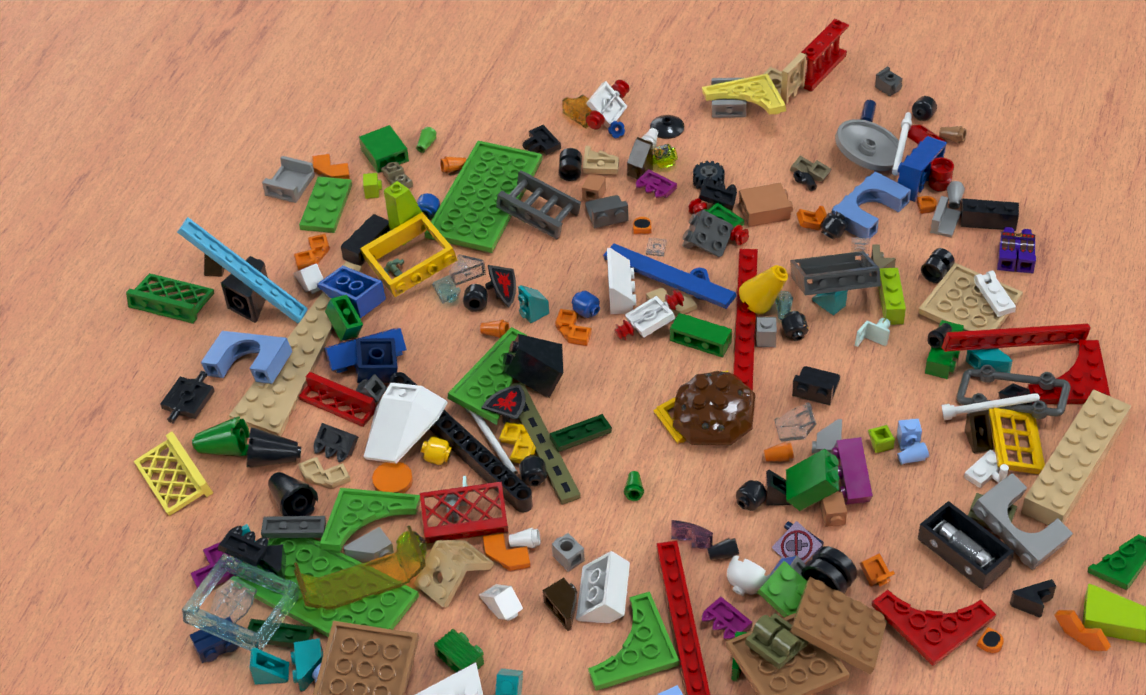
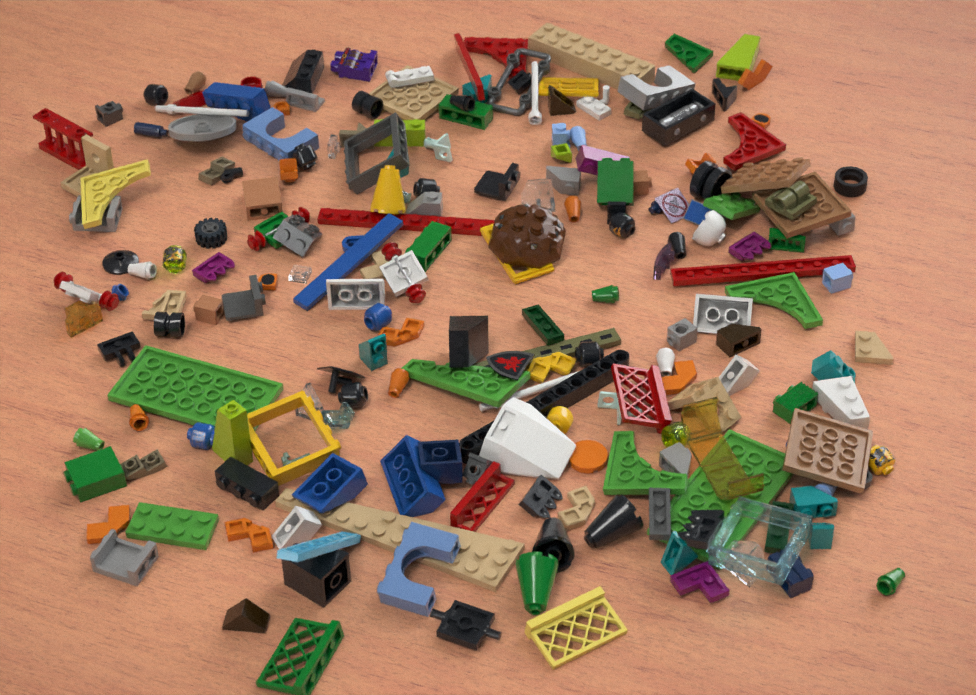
camera: 90 degrees left, 5 degrees down
(343, 317) = (374, 489): green brick -> none
(371, 185) = (156, 483): lime plate -> none
(535, 217) = (233, 356): dark grey fence -> none
(640, 158) = (181, 270): slope -> none
(718, 193) = (241, 225): black plate -> none

